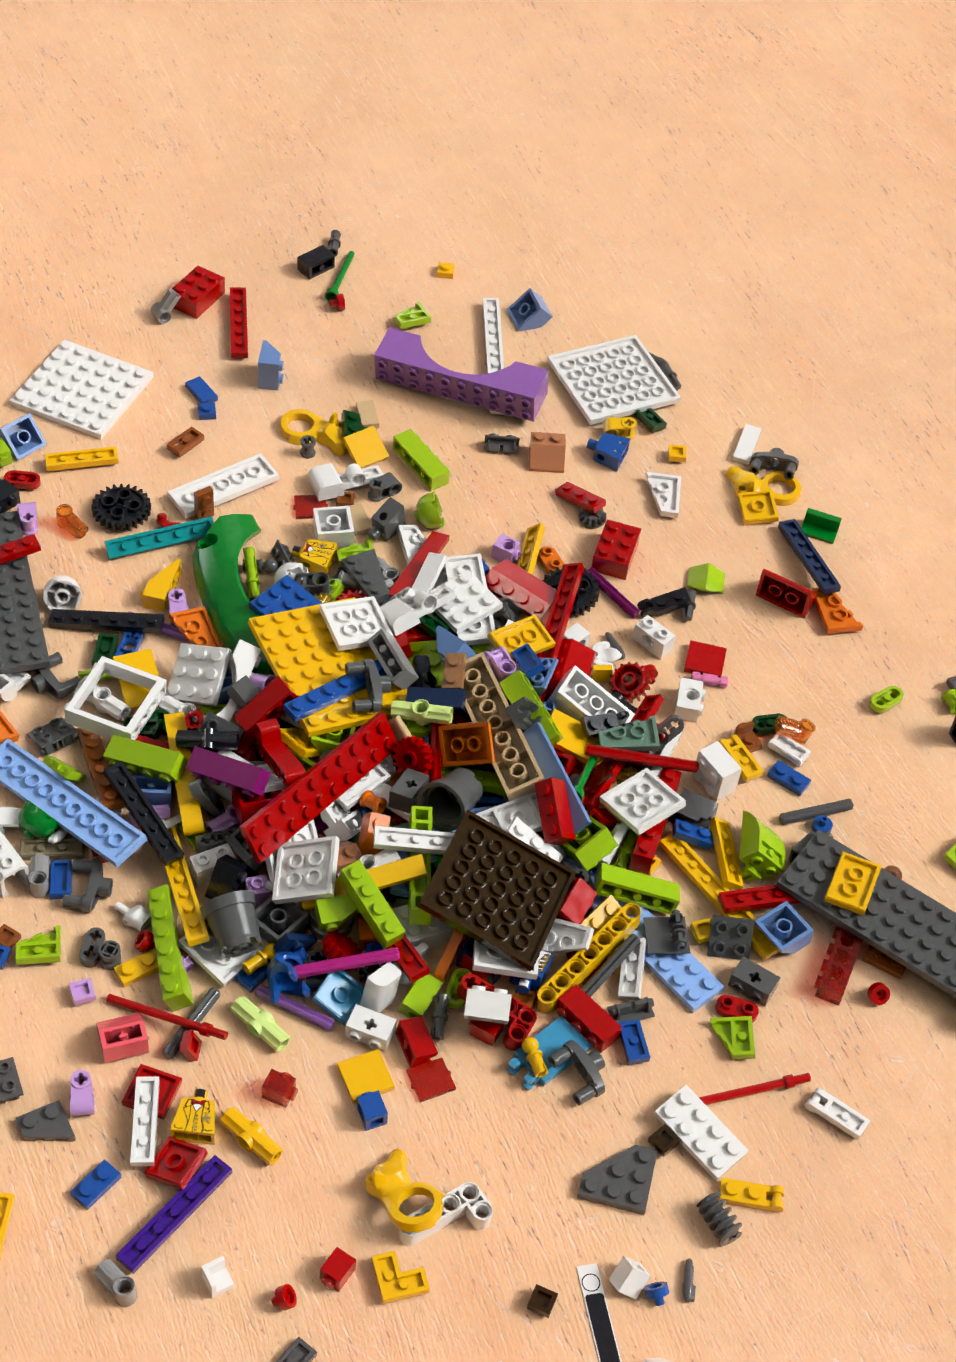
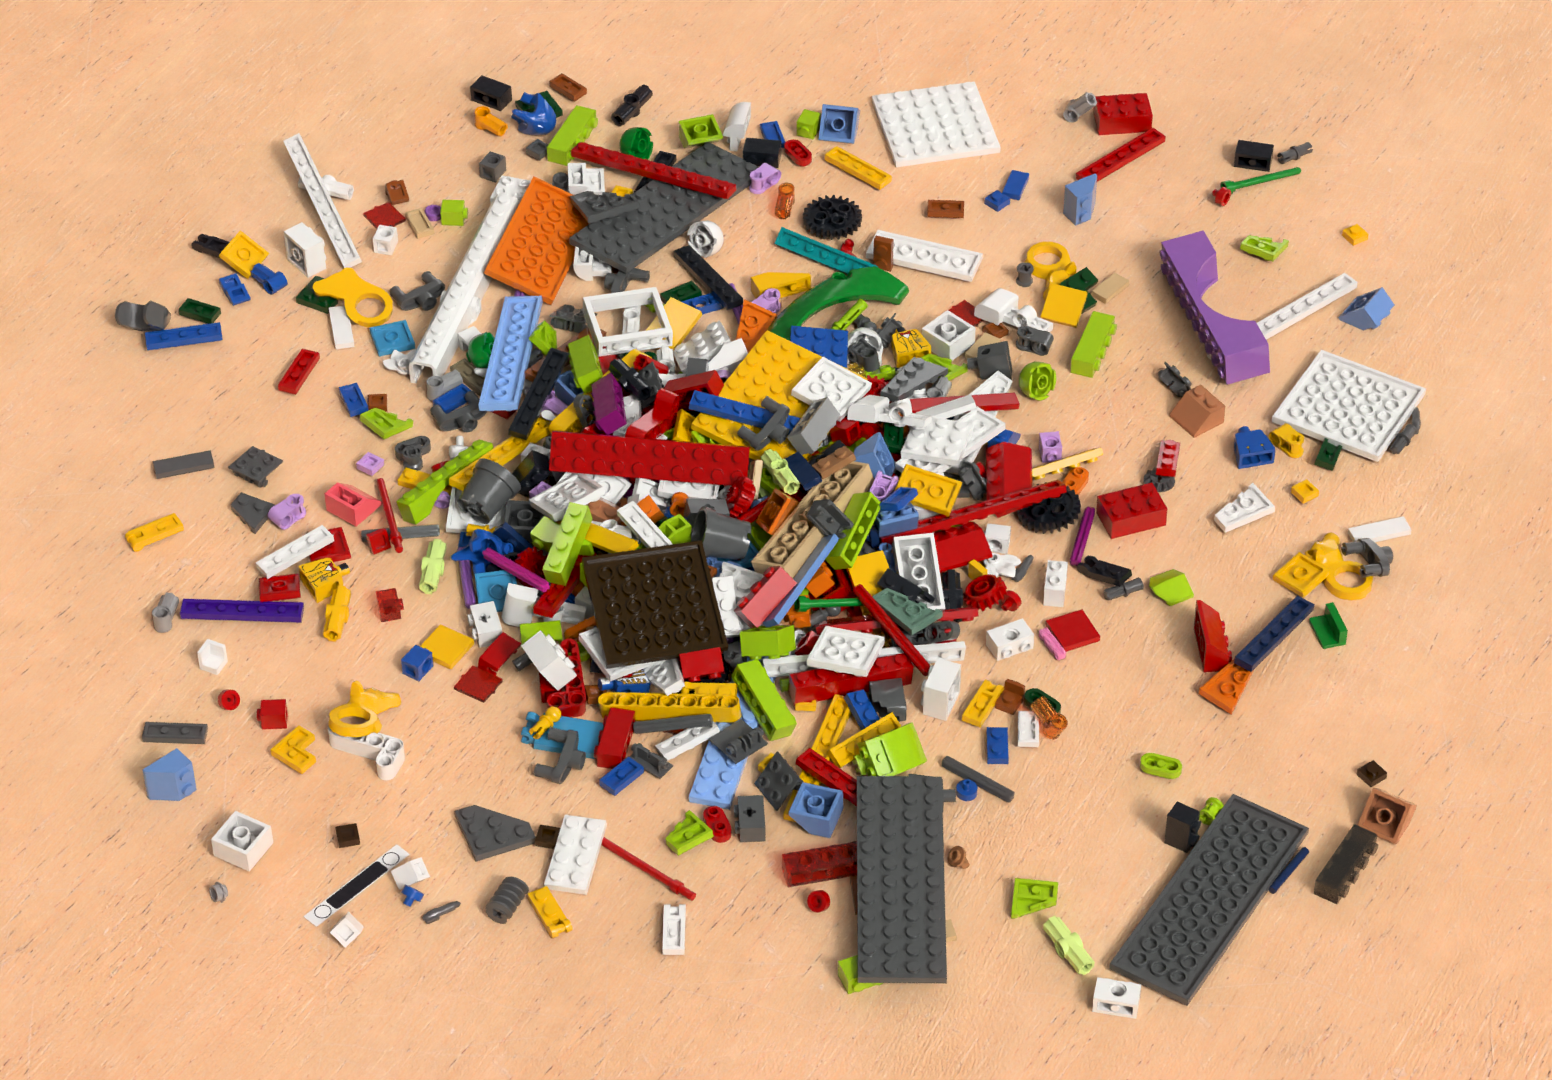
camera: 60 degrees right, 5 degrees down
(95, 1184) = (229, 562): blue plate -> none
(852, 883) = (900, 819): yellow tile -> none

